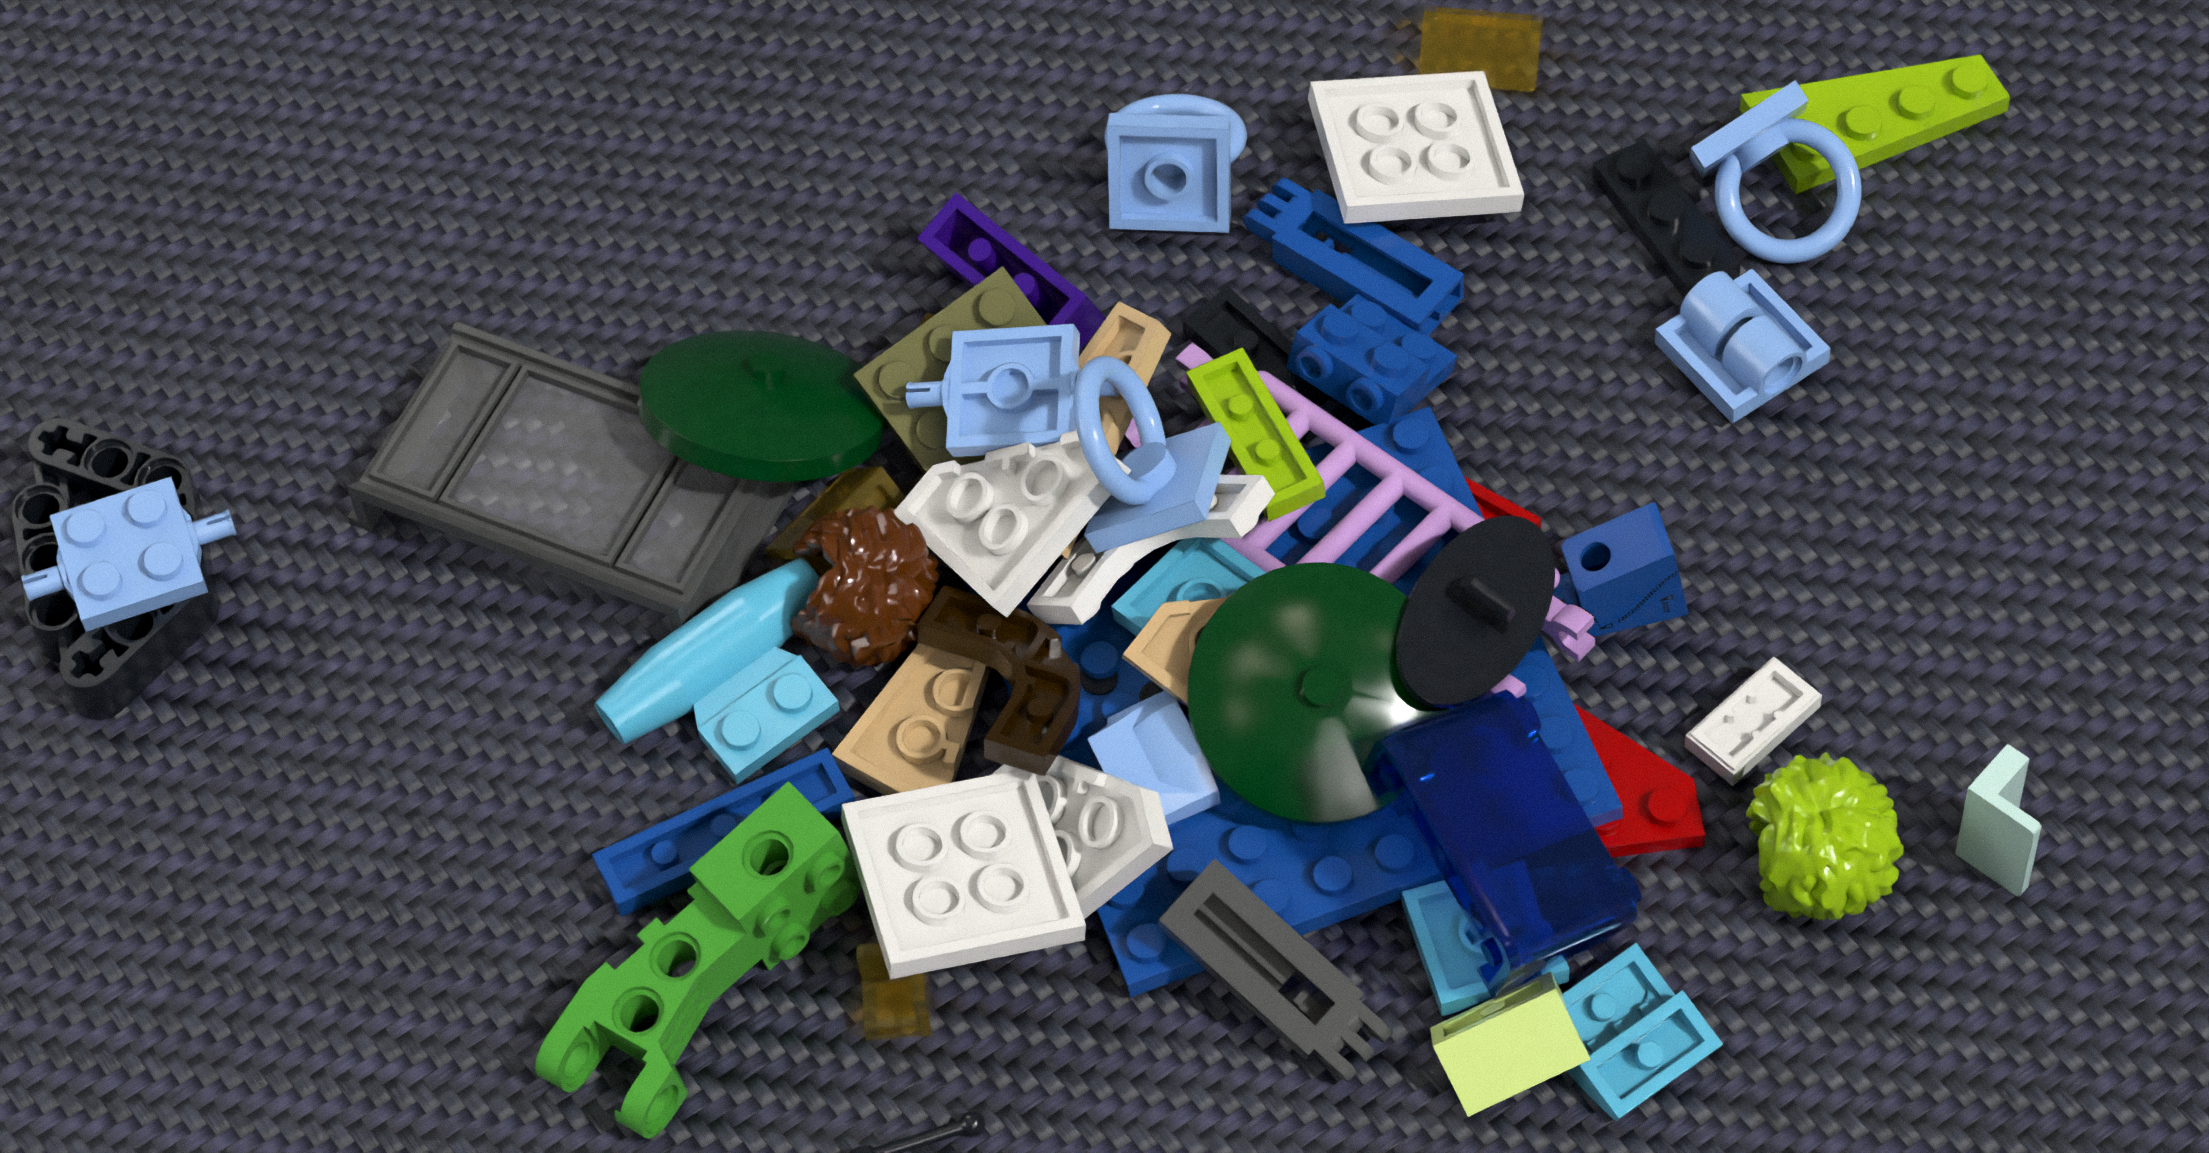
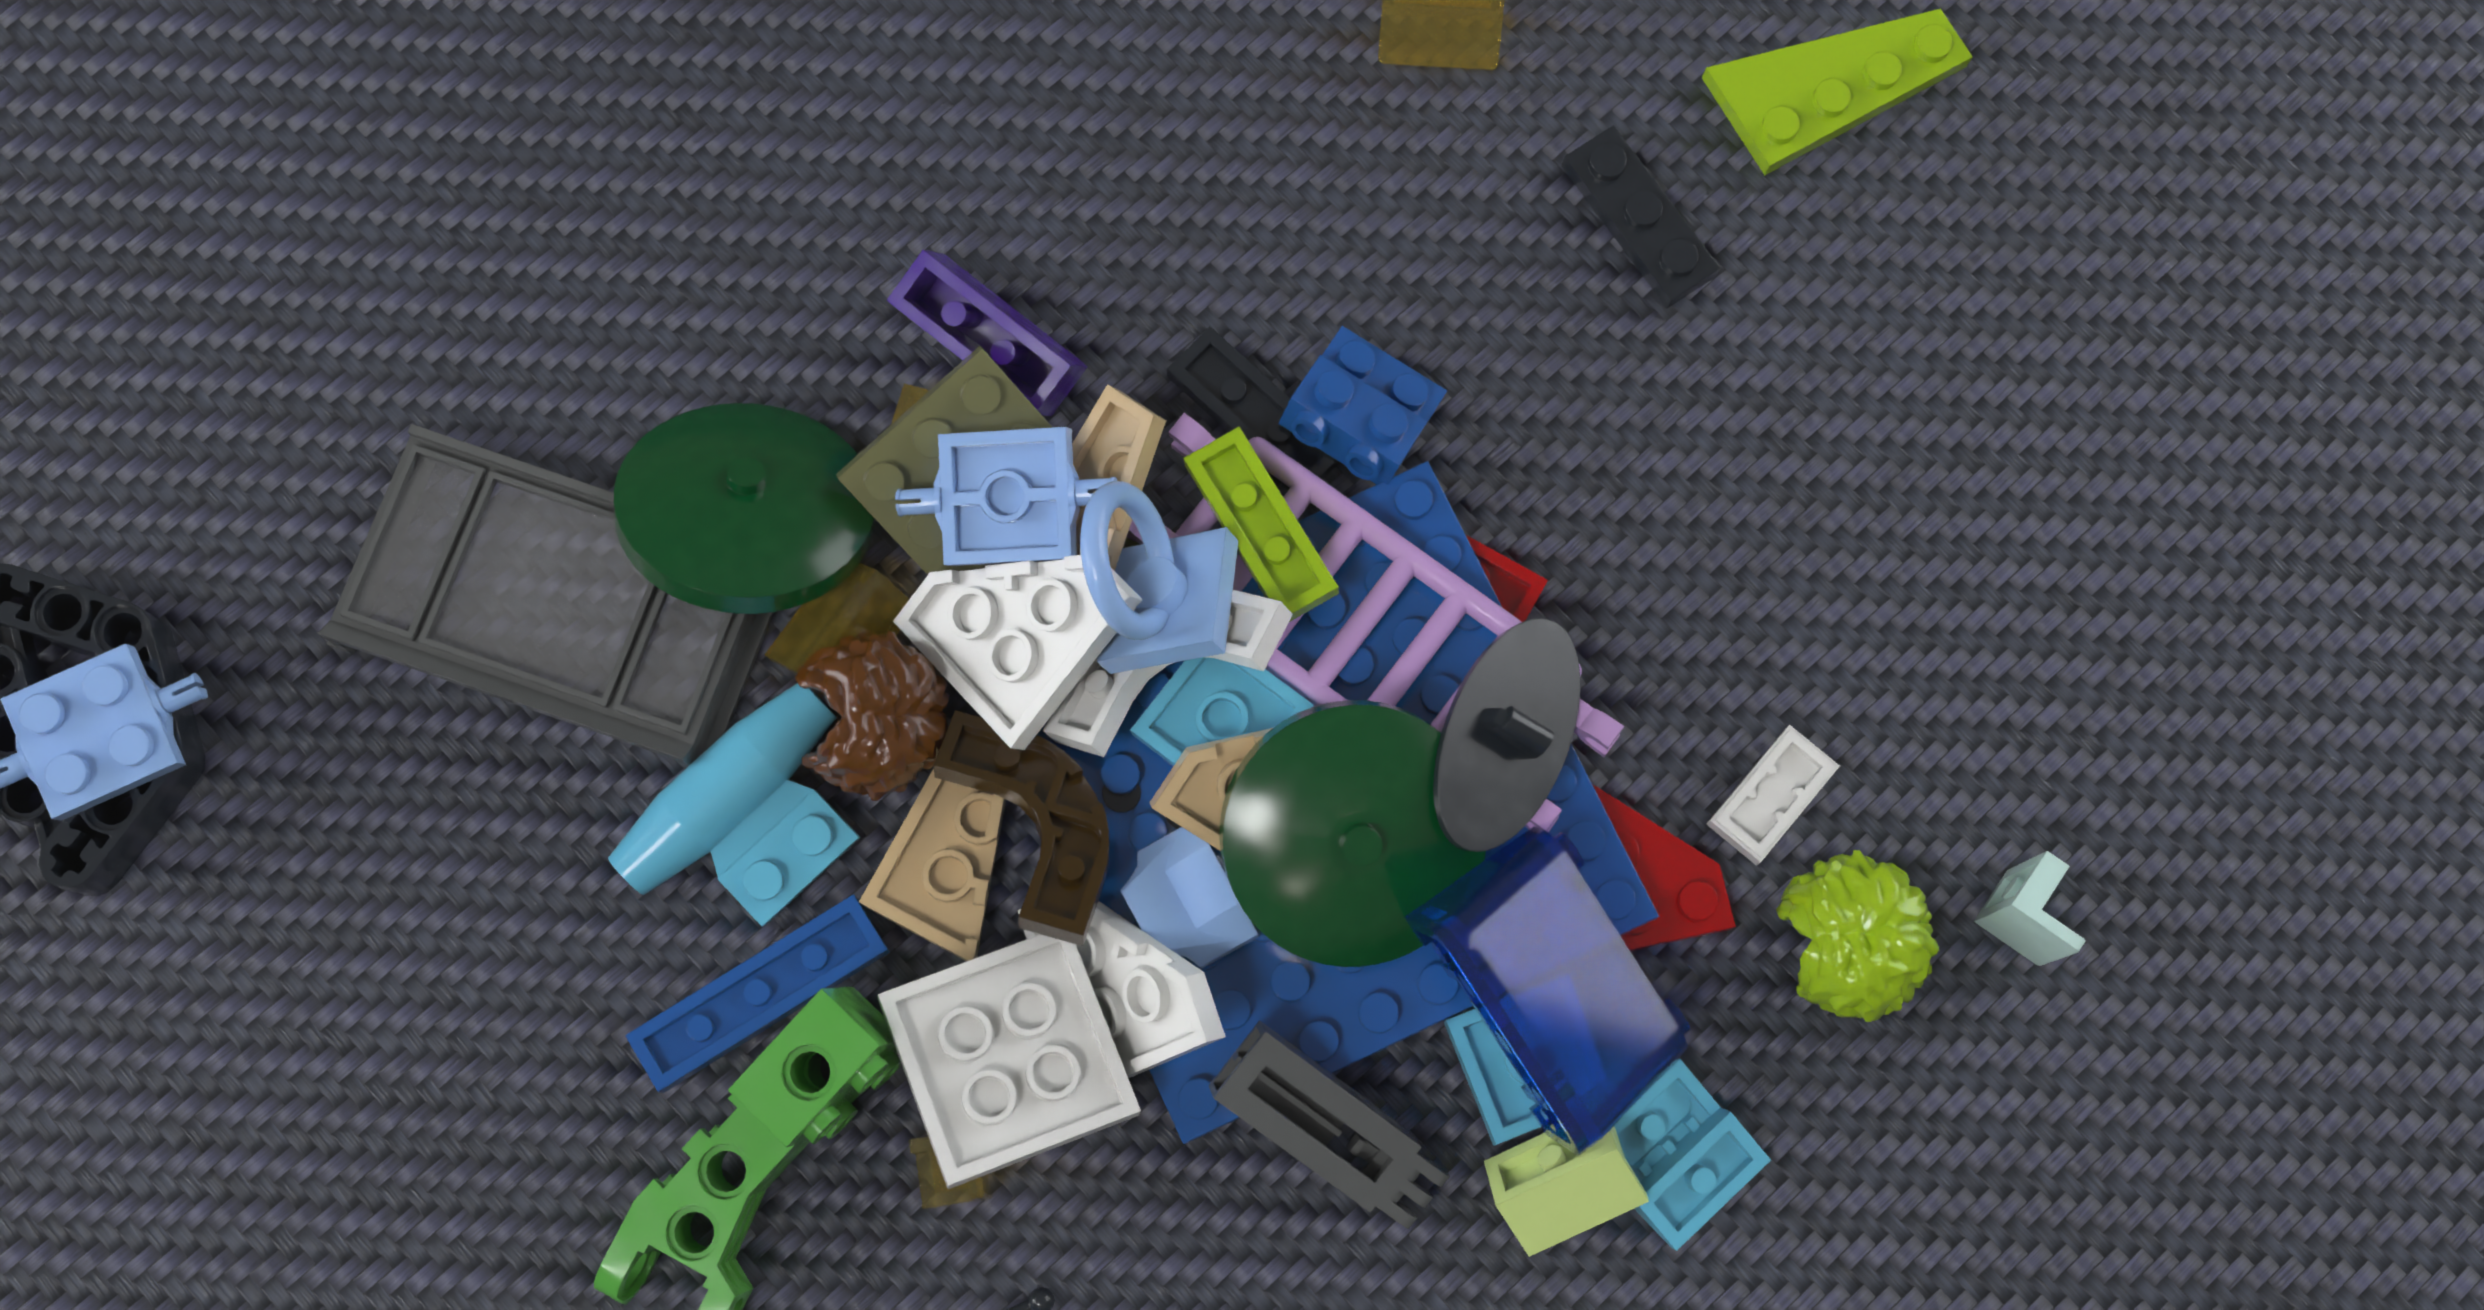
camera: 15 degrees left, 20 degrees up
(1172, 163) = (1139, 196): light blue tile -> none
(1380, 266) = (1353, 292): blue hinge -> none
(1415, 147) = (1385, 152): white plate -> none
(1623, 573) = (1653, 635): blue torso -> none
(1740, 342) = (1729, 362): light blue plate -> none
(1755, 139) = (1732, 133): light blue tile -> none

